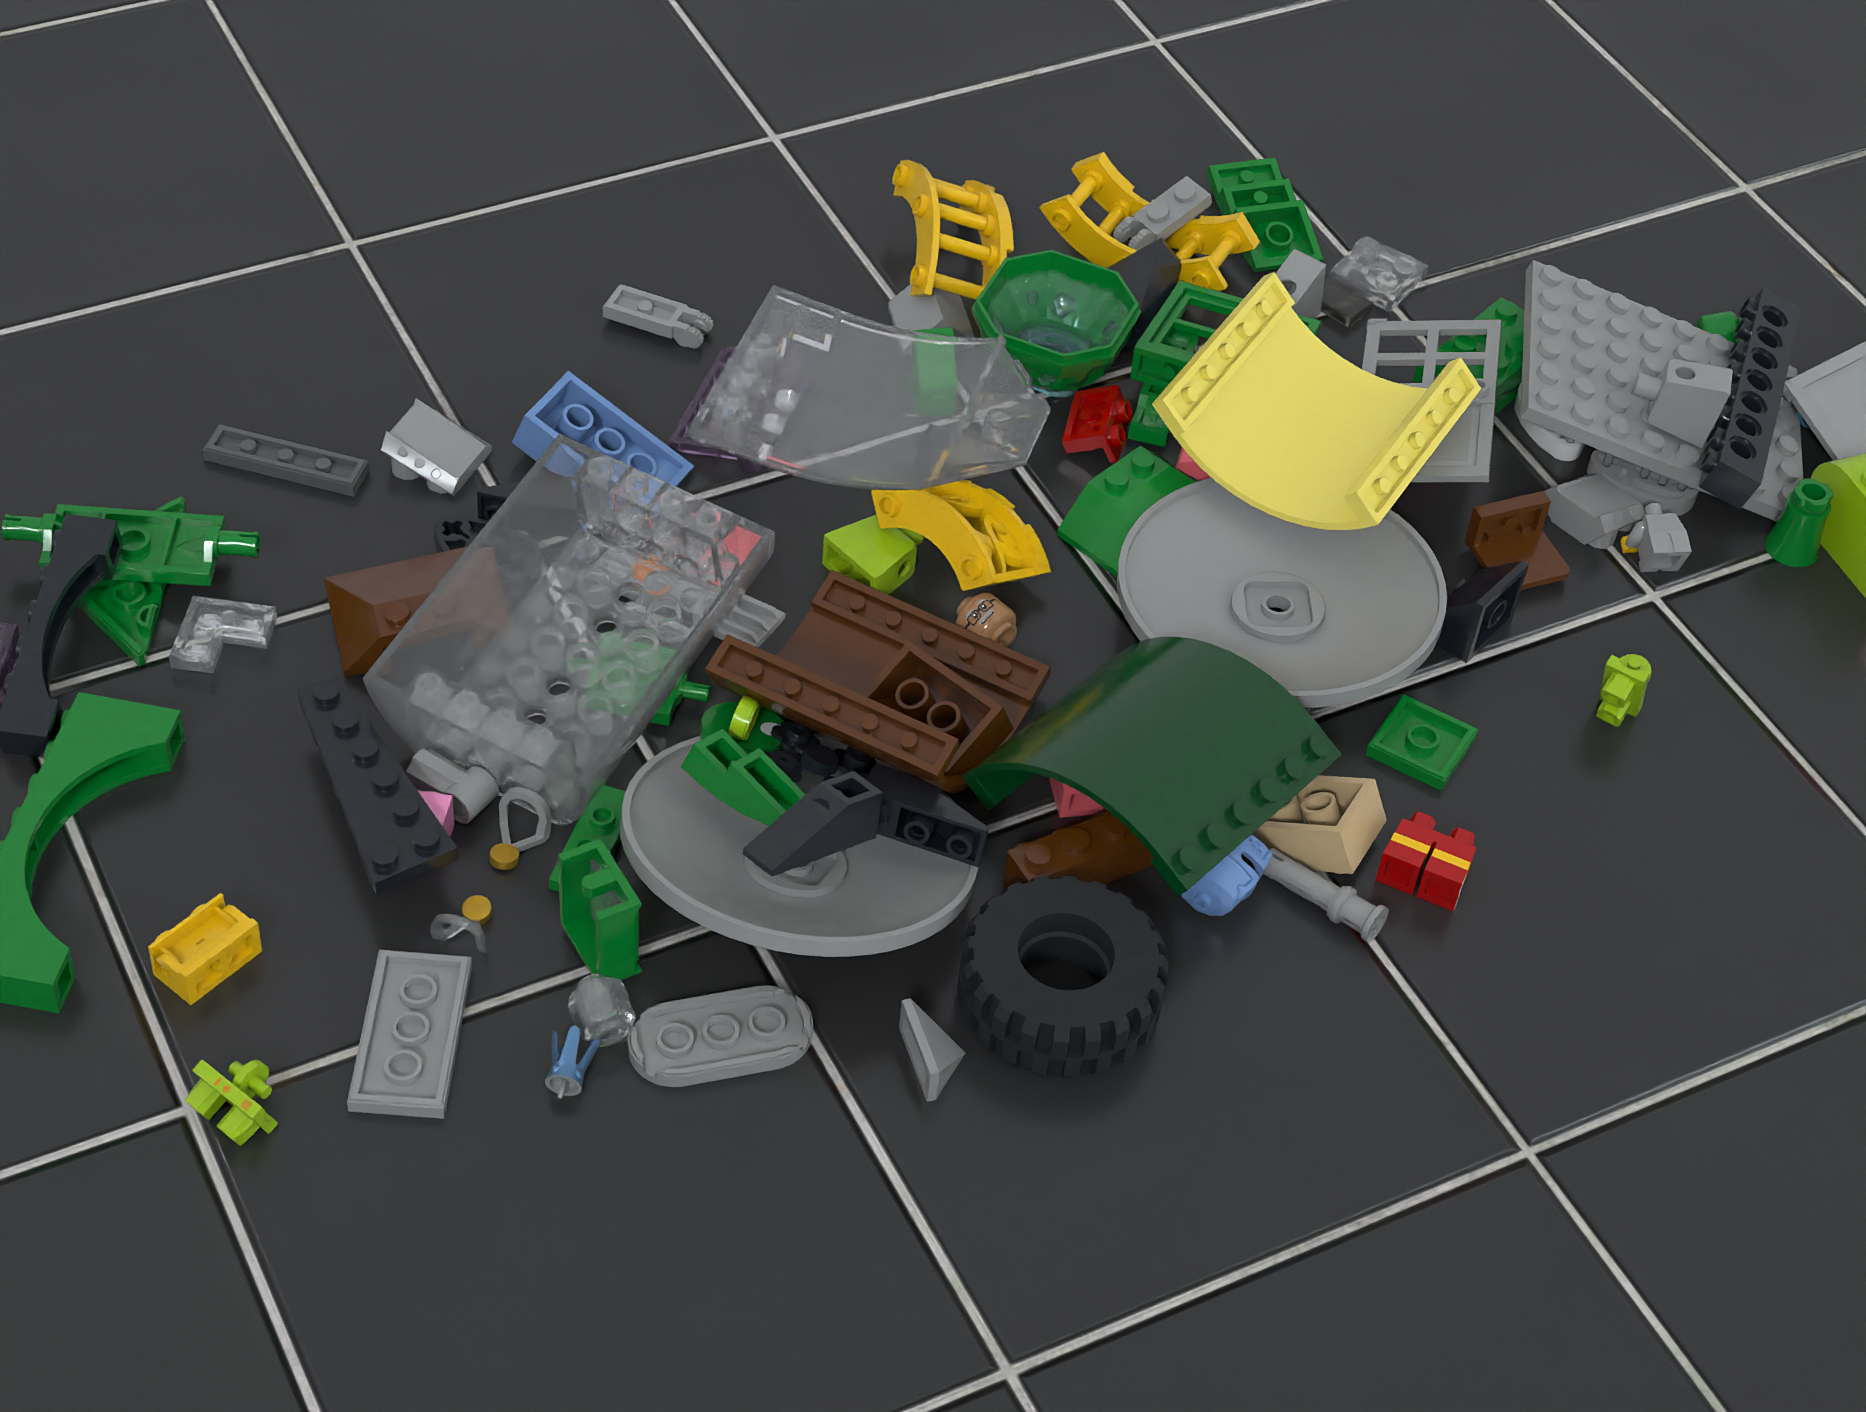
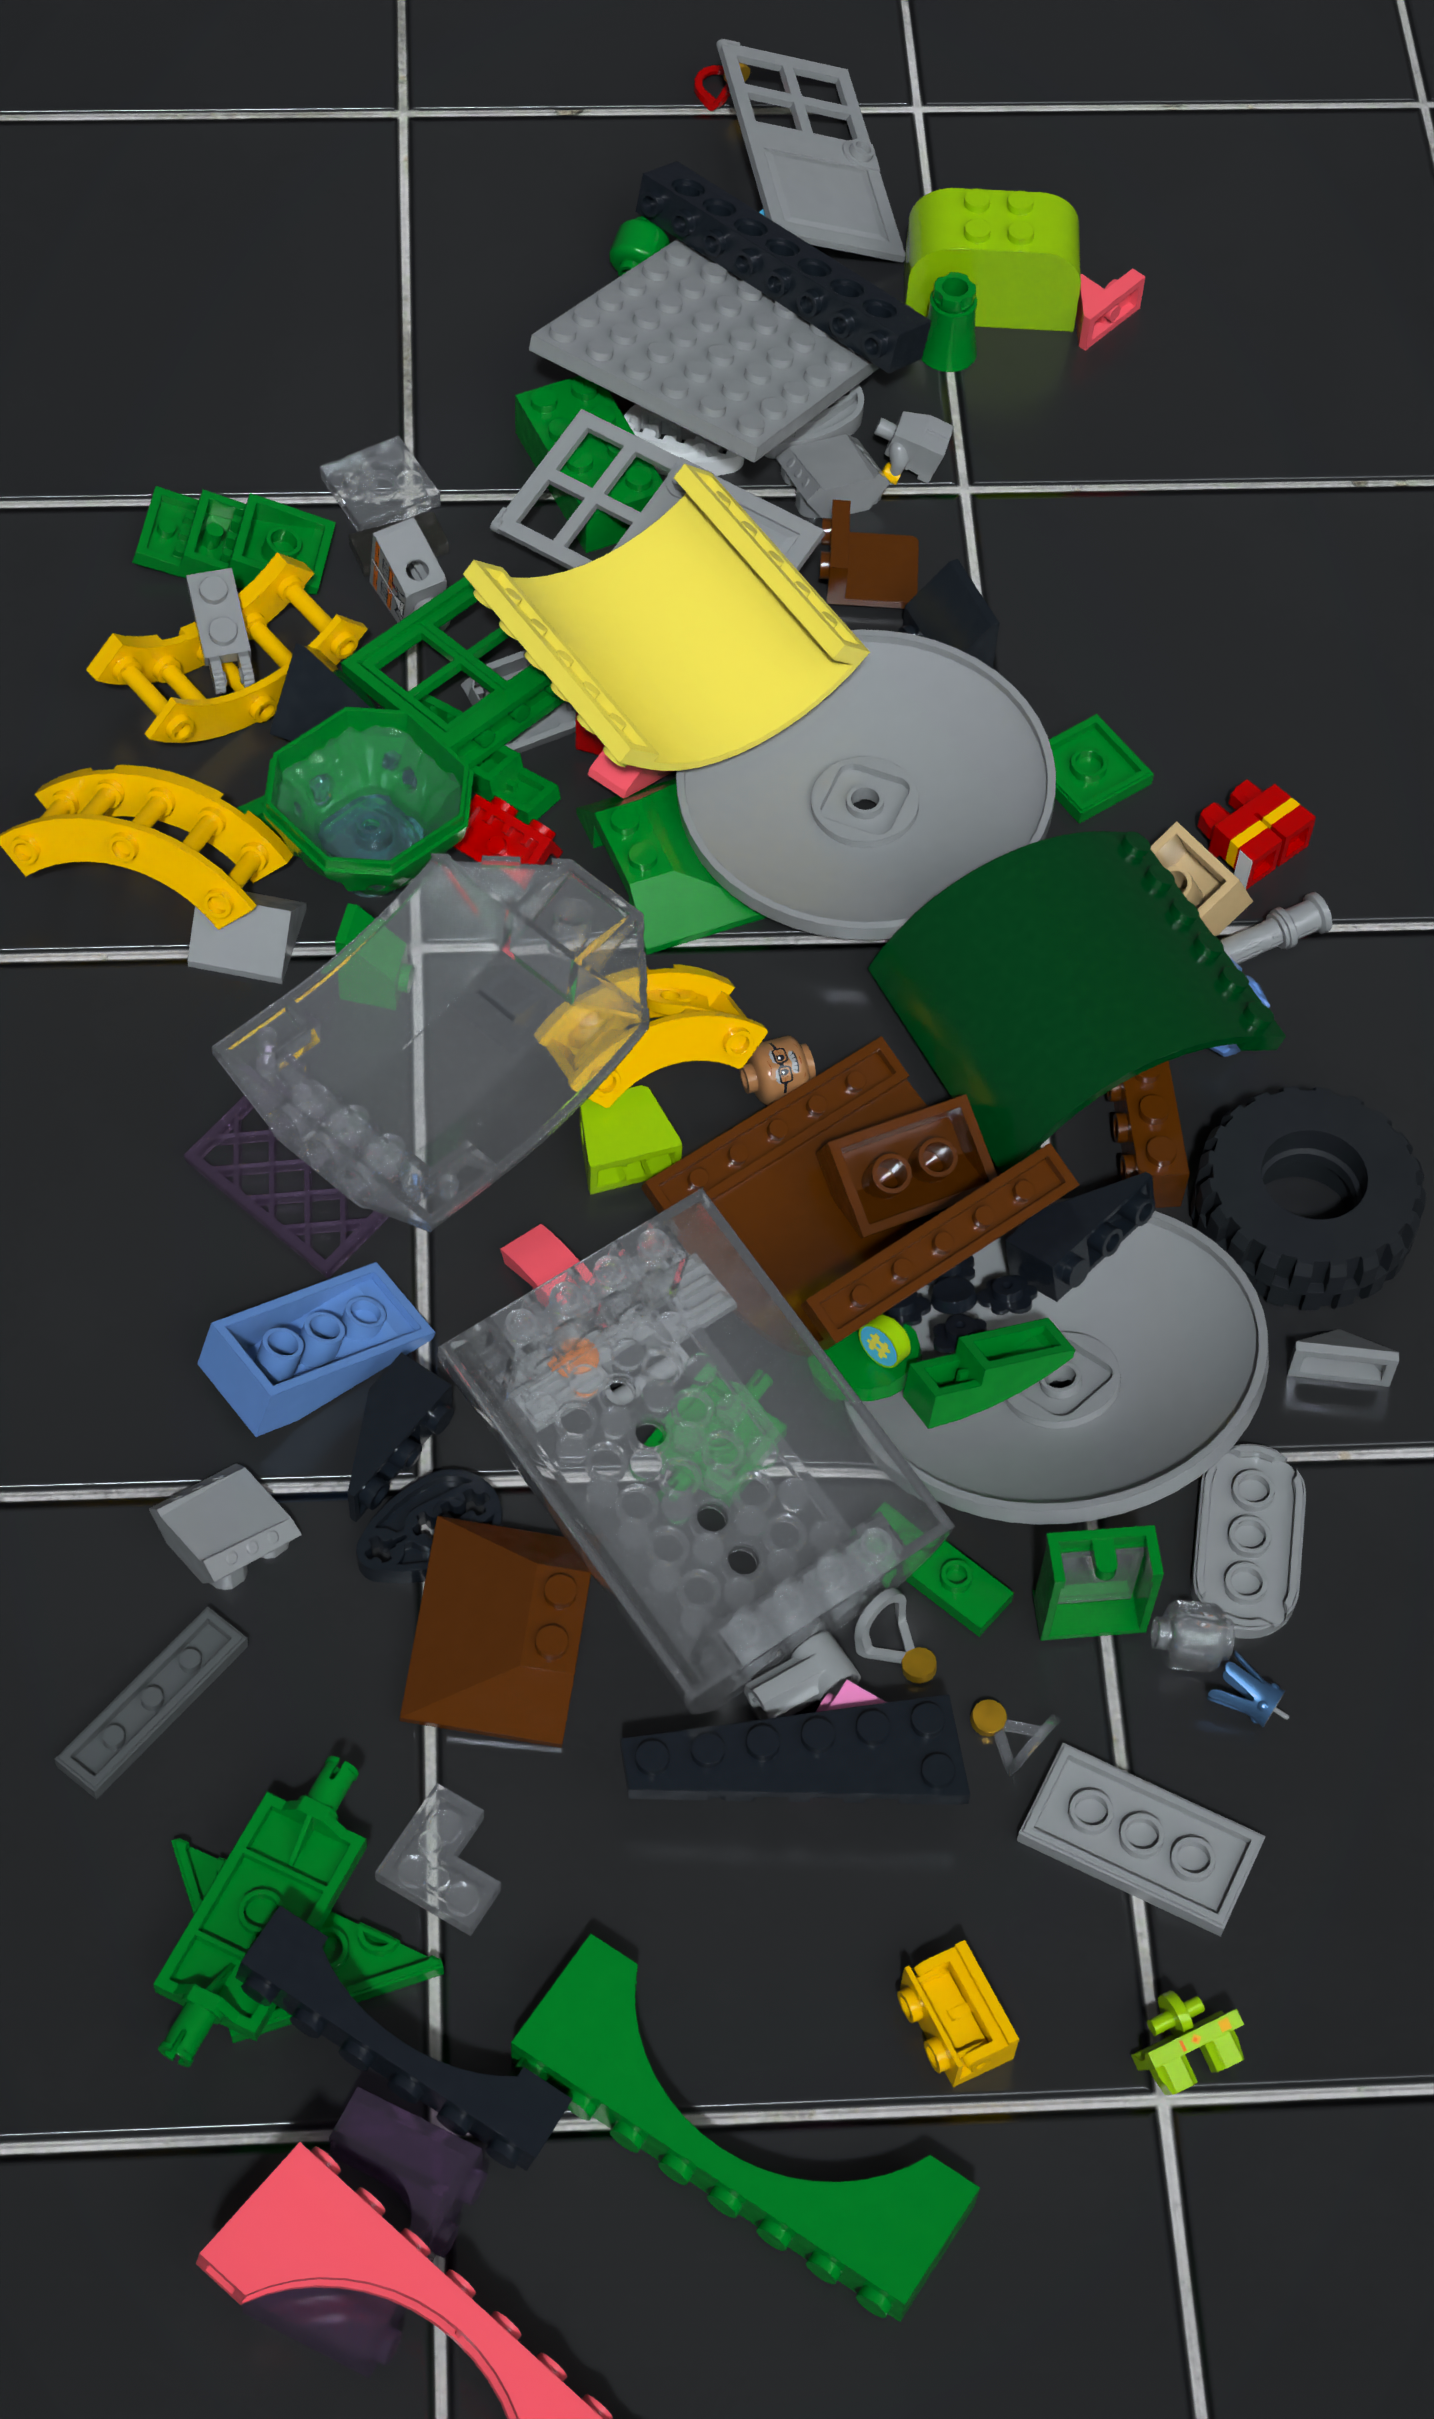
camera: 65 degrees left, 10 degrees up
(658, 315) = (94, 1206): light grey hinge -> none
(821, 823) = (1095, 1324): black slope -> none
(1623, 687) = (1110, 570): lime hips -> none
(1685, 398) = (801, 313): light grey torso -> none

